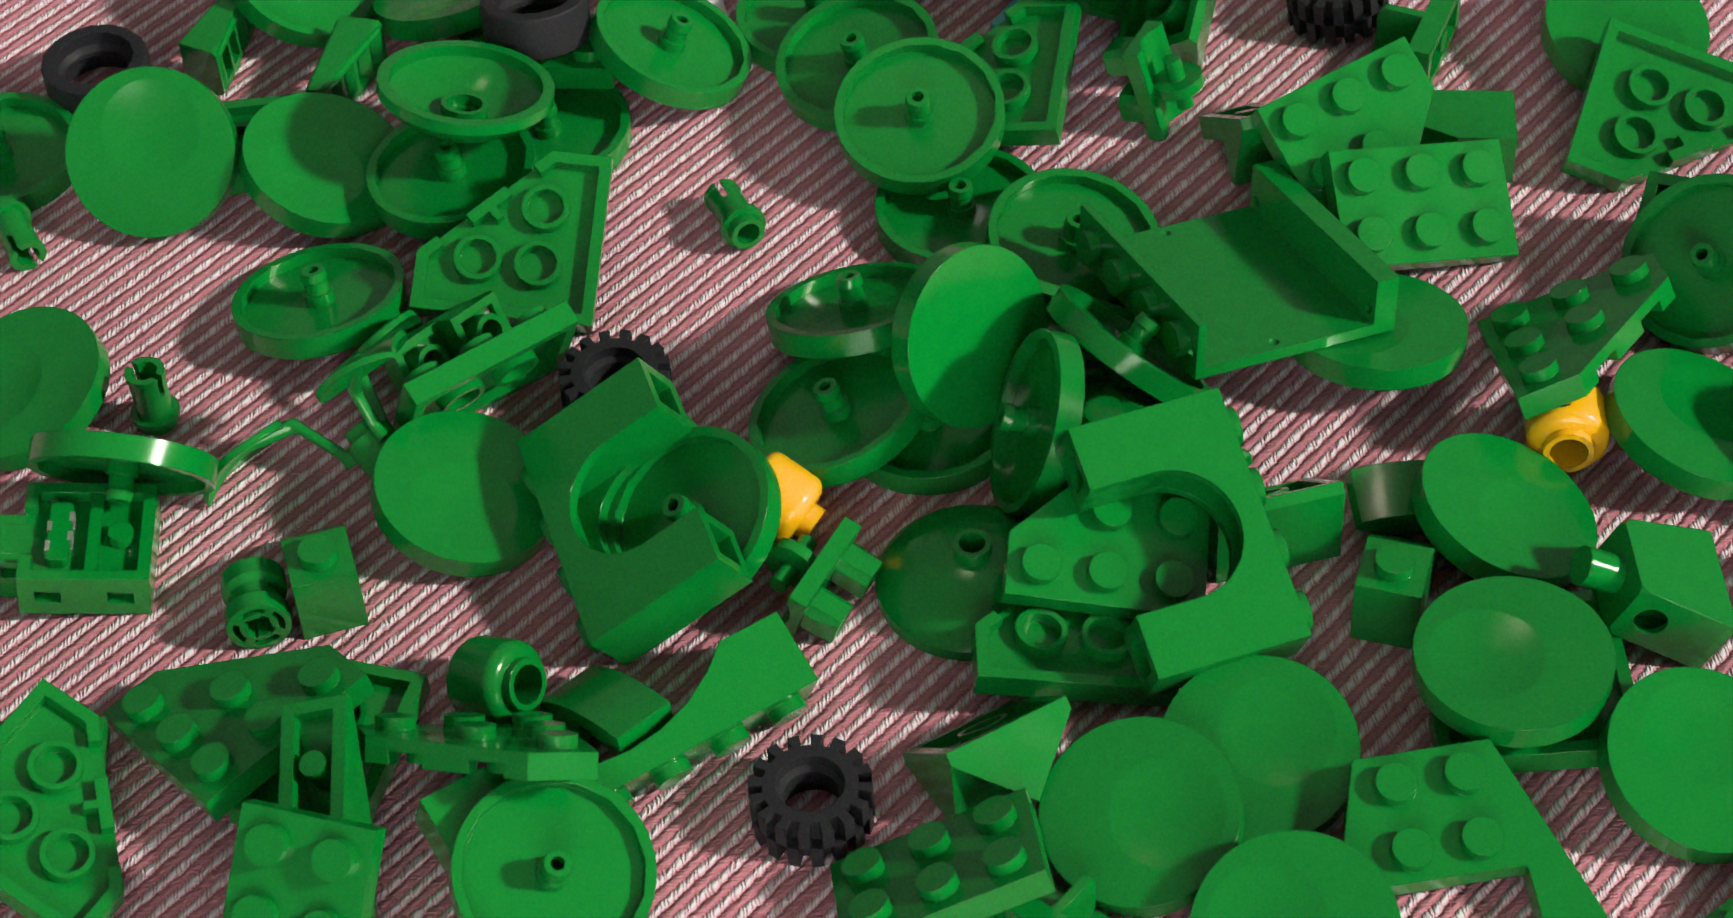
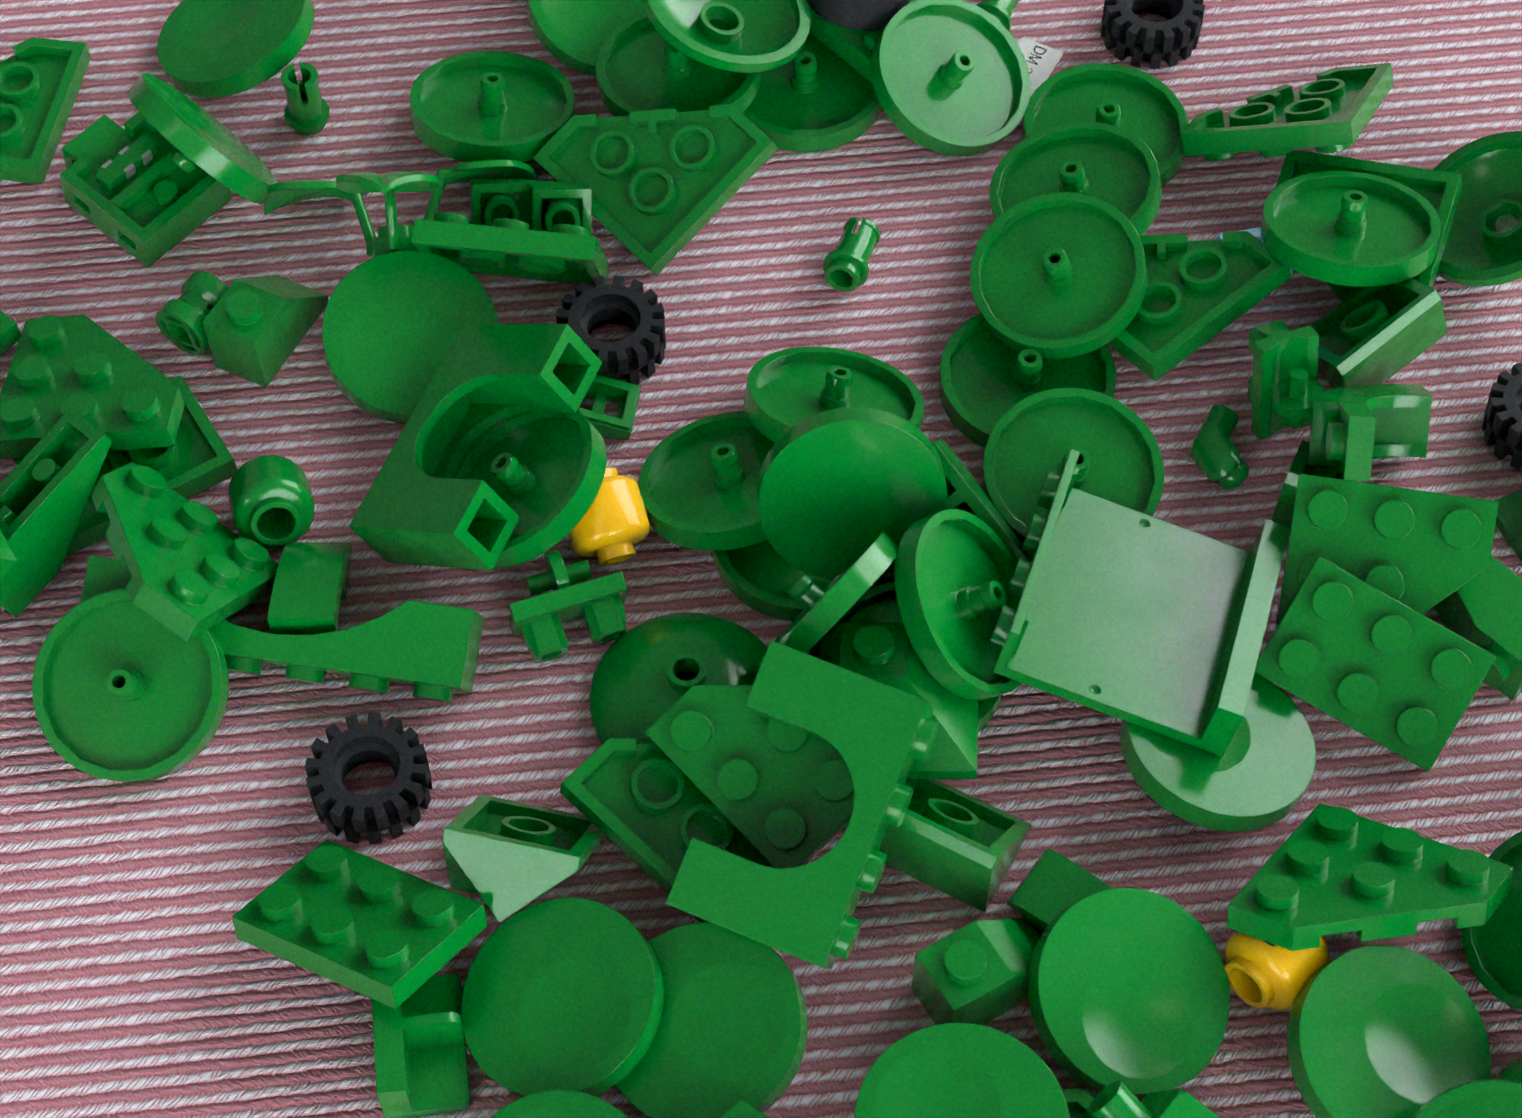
camera: 40 degrees right, 10 degrees up
(1149, 164) = (1215, 452): none -> green arm
(1251, 65) = (1368, 423): none -> green arch

